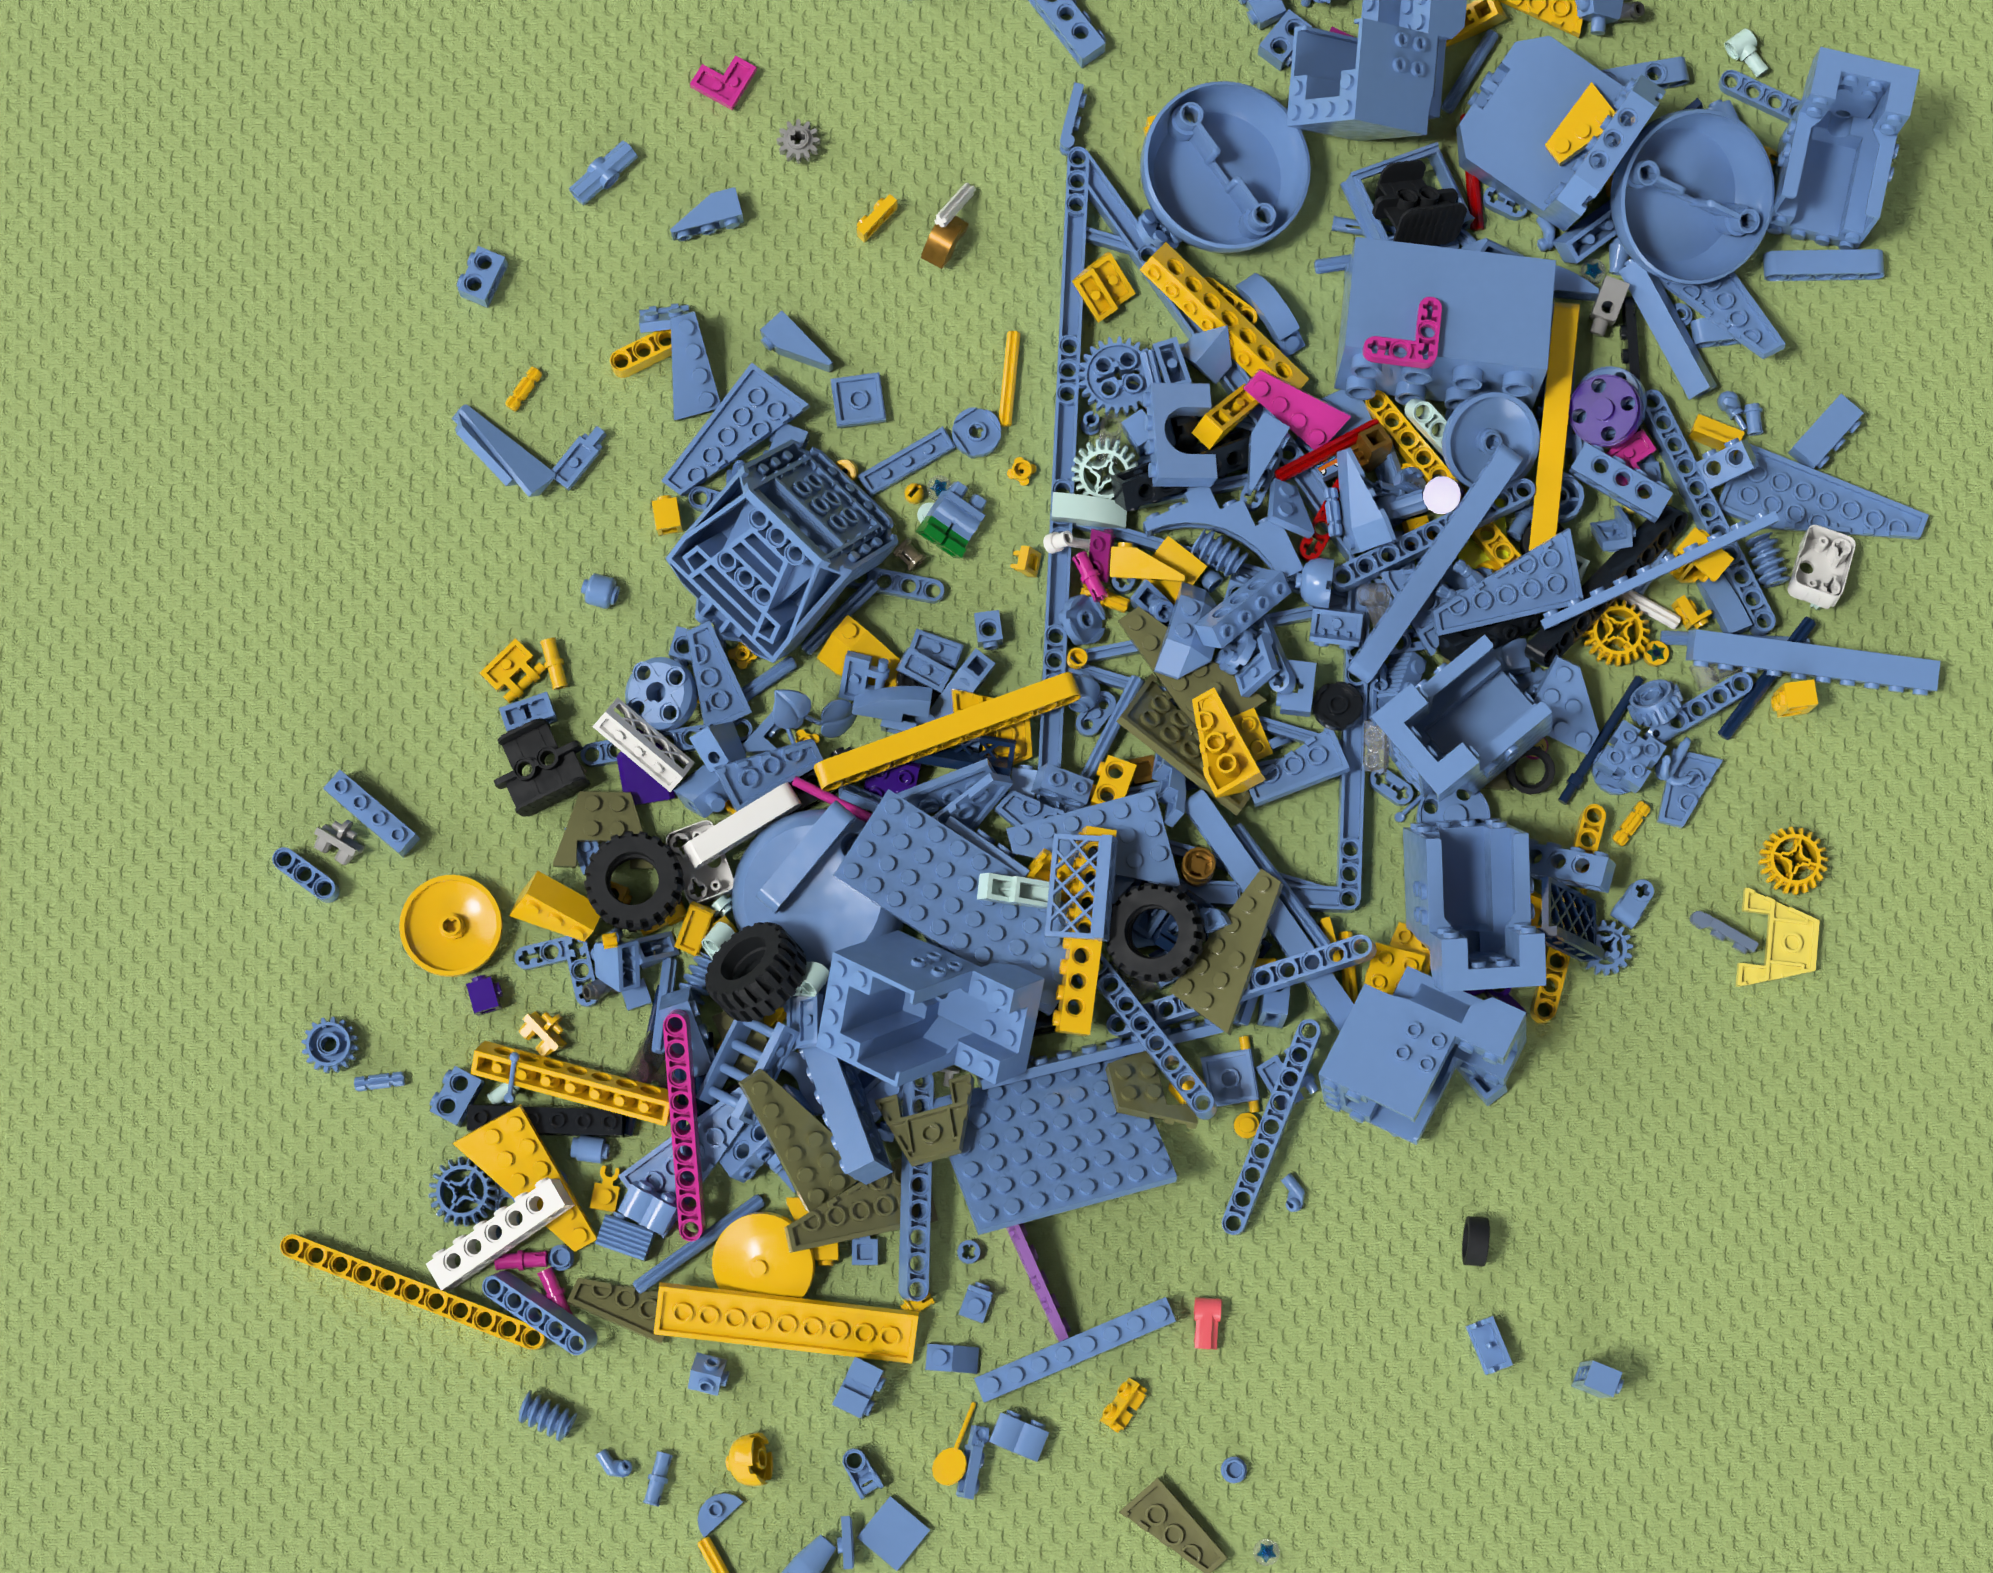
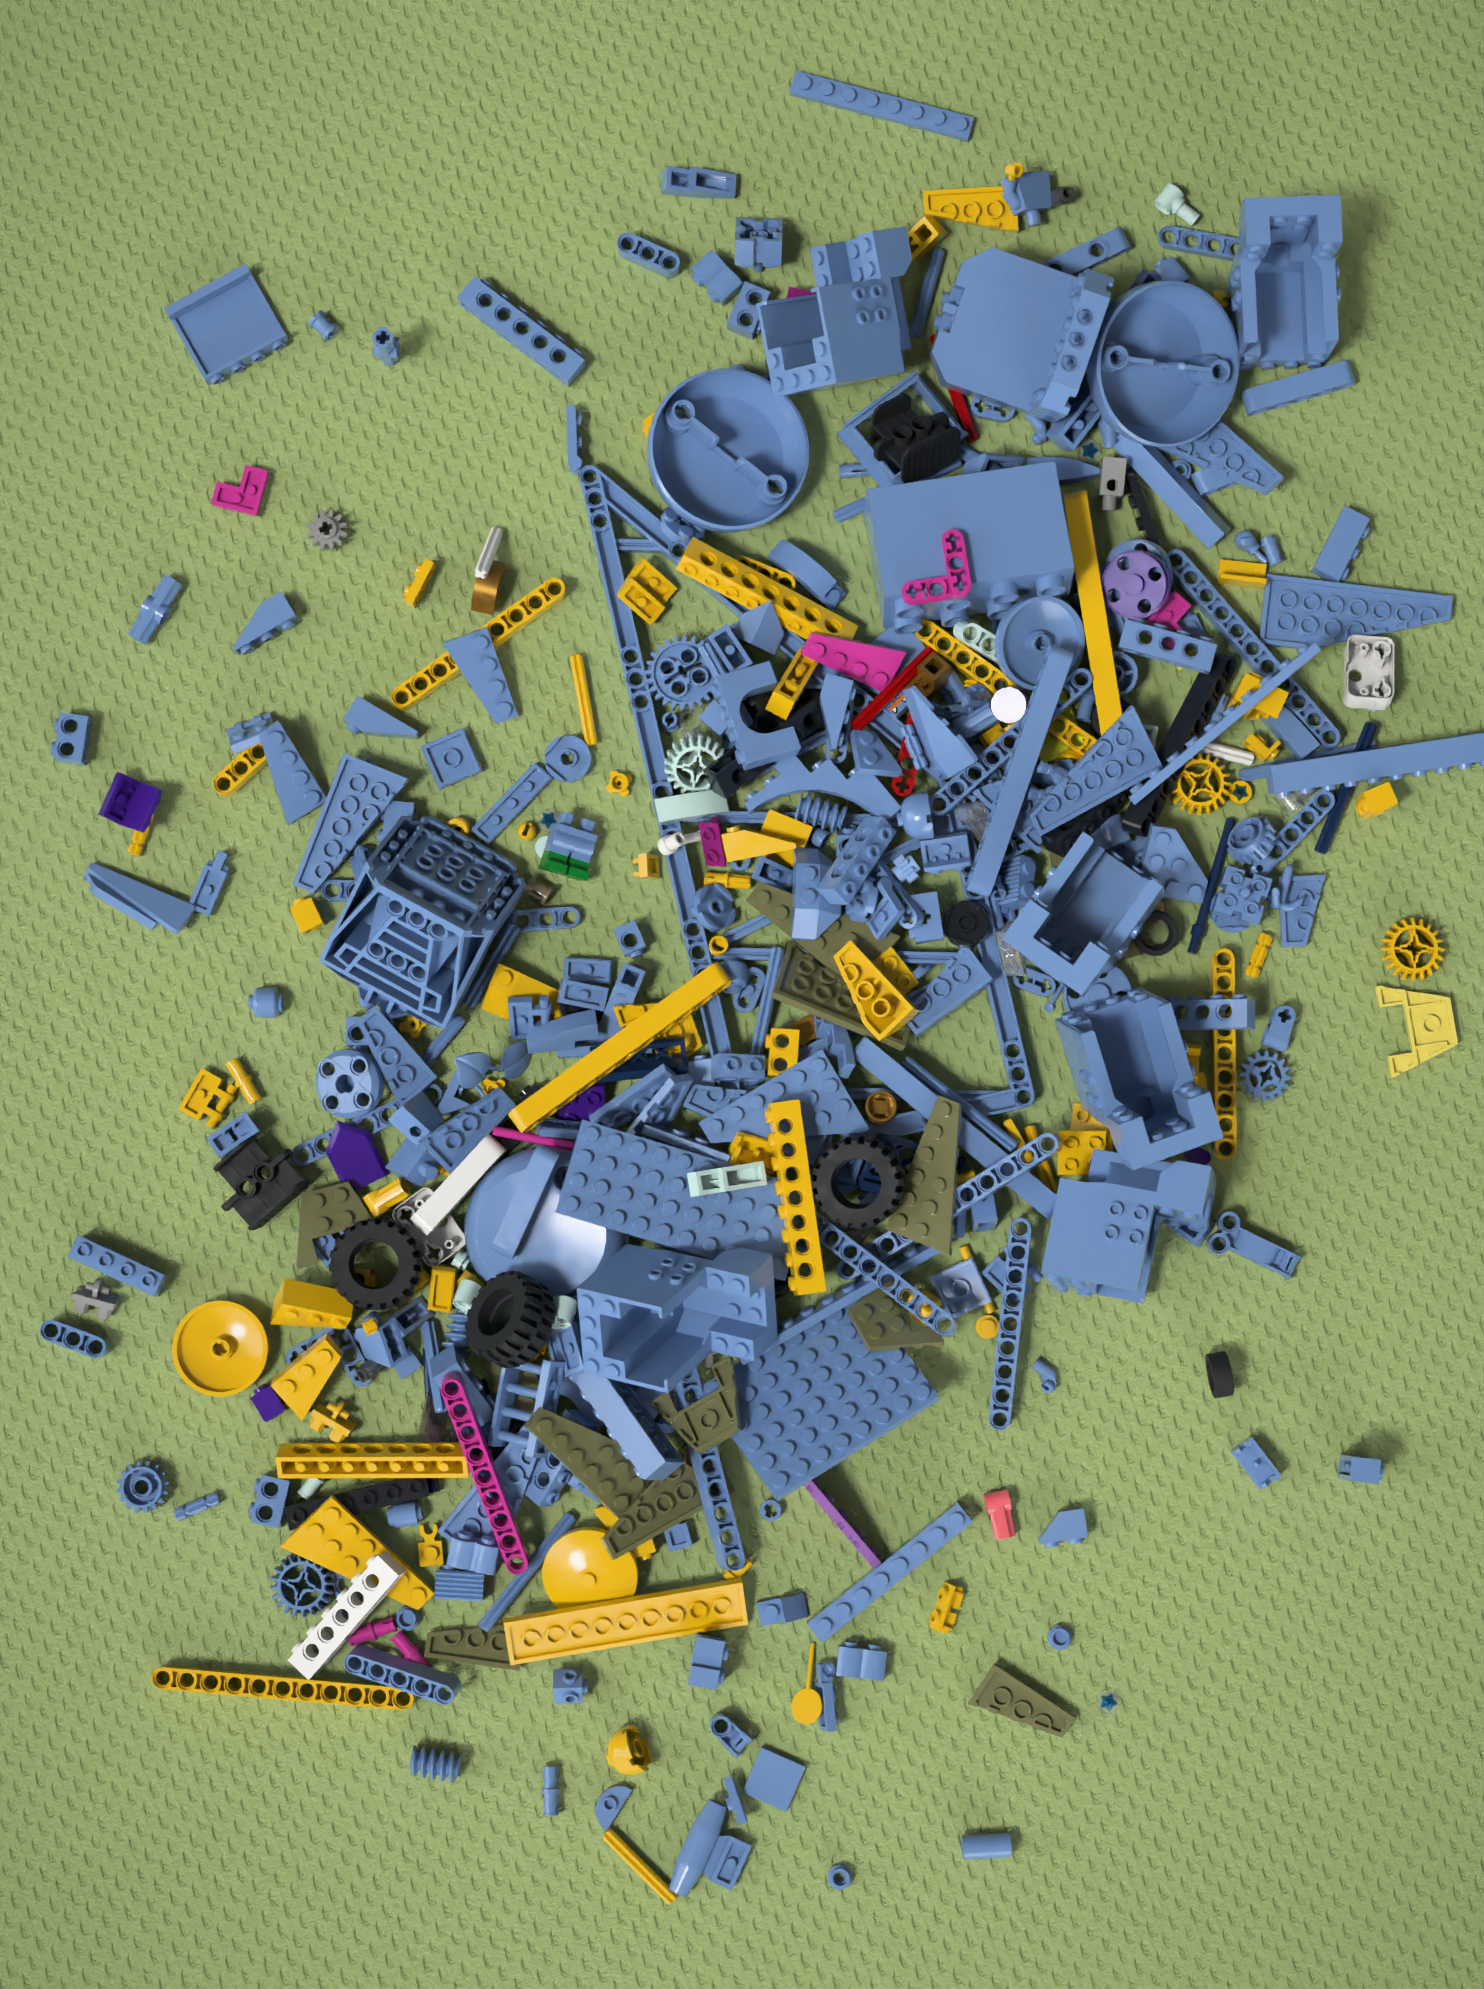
camera: 15 degrees left, 5 degrees up
(509, 1097) = (319, 1489): medium blue hinge -> none
(521, 354) = (130, 803): none -> dark purple bracket
(530, 977) = (307, 1374): none -> yellow wedge
(614, 1467) = (508, 1791): medium blue arm -> none
(642, 747) = (346, 1138): white fence -> none
(659, 821) = (383, 1199): none -> yellow piece
(910, 303) = (503, 620): none -> yellow beam
(915, 319) = (481, 668): none -> medium blue wing
(976, 1302) = (789, 1553): medium blue bracket -> none
(1090, 576) = (709, 866): dark pink pin -> none
(1102, 892) = (802, 1158): medium blue fence -> none
(1156, 606) = (776, 878): medium blue bush -> none
(1214, 919) = (908, 1153): medium blue tile -> none
(1271, 1354) = (1065, 1525): none -> medium blue slope
(1290, 633) = (905, 869): none -> light blue gear
(1545, 1120) = (1252, 1247): none -> medium blue piece
(1565, 939) = (1227, 1082): dark blue fence -> none
(1579, 126) = (1043, 324): yellow wing -> none
(1614, 533) = (1172, 693): medium blue bracket -> none
(1722, 931) = (1365, 1032): sand blue hinge -> none
(1729, 467) = (1262, 604): medium blue brick -> none
(1766, 560) = (1319, 681): medium blue piece -> none

